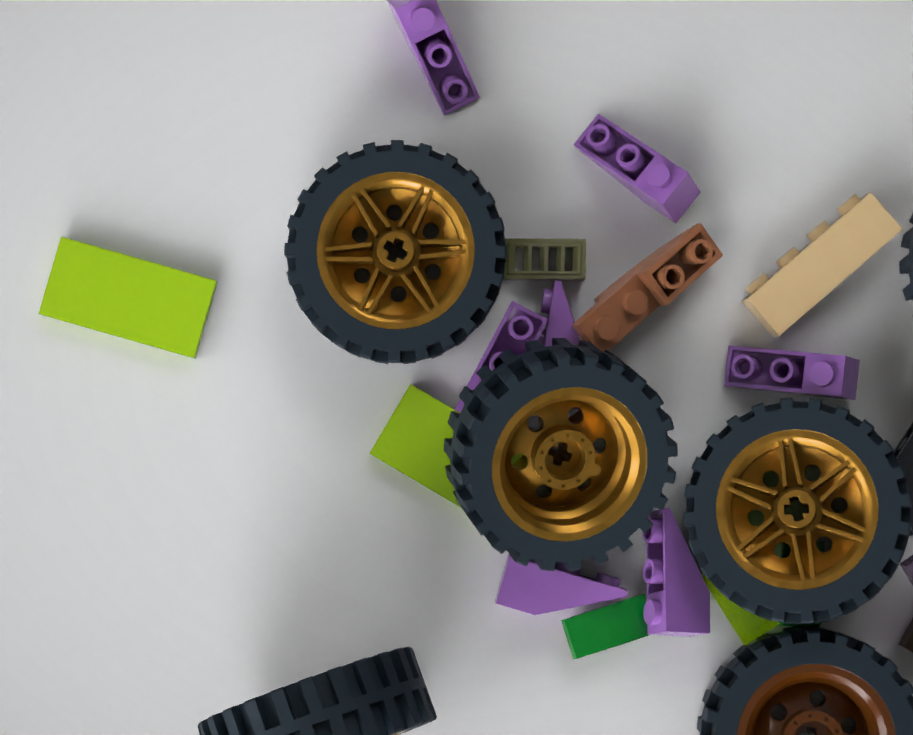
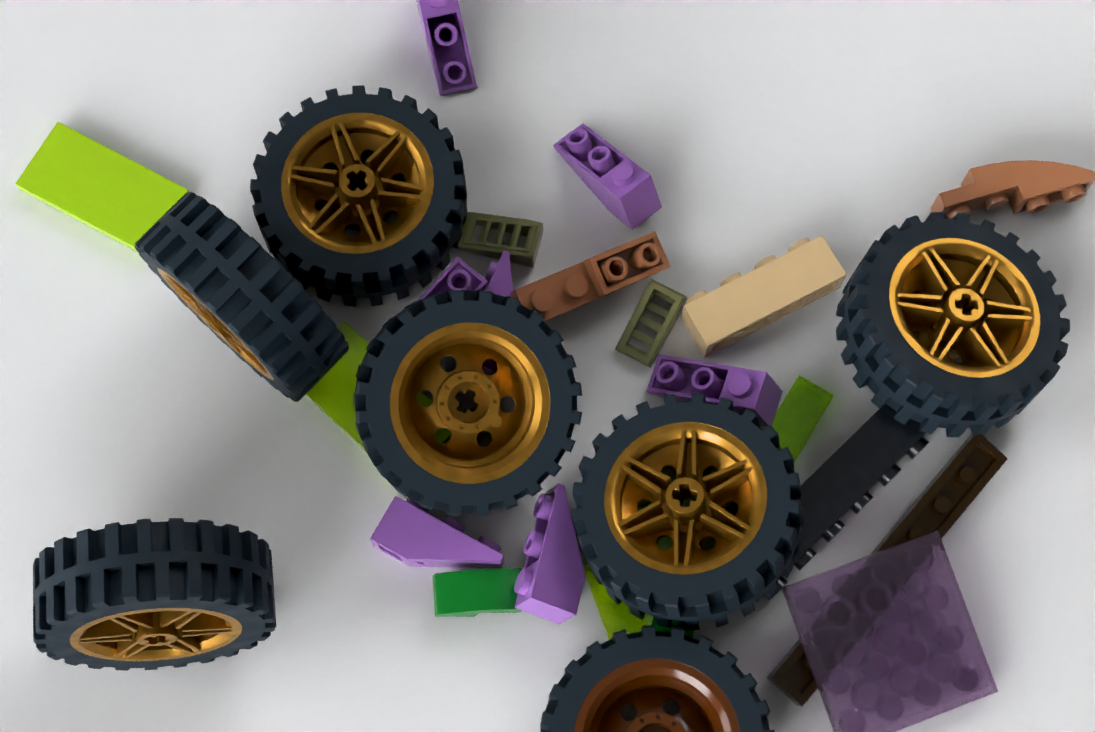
camera: 15 degrees right, 15 degrees down
(318, 410) = (243, 295): none -> black wheel
(723, 281) = (653, 289): none -> olive slope
(878, 382) = (800, 414): none -> clear neon green tile

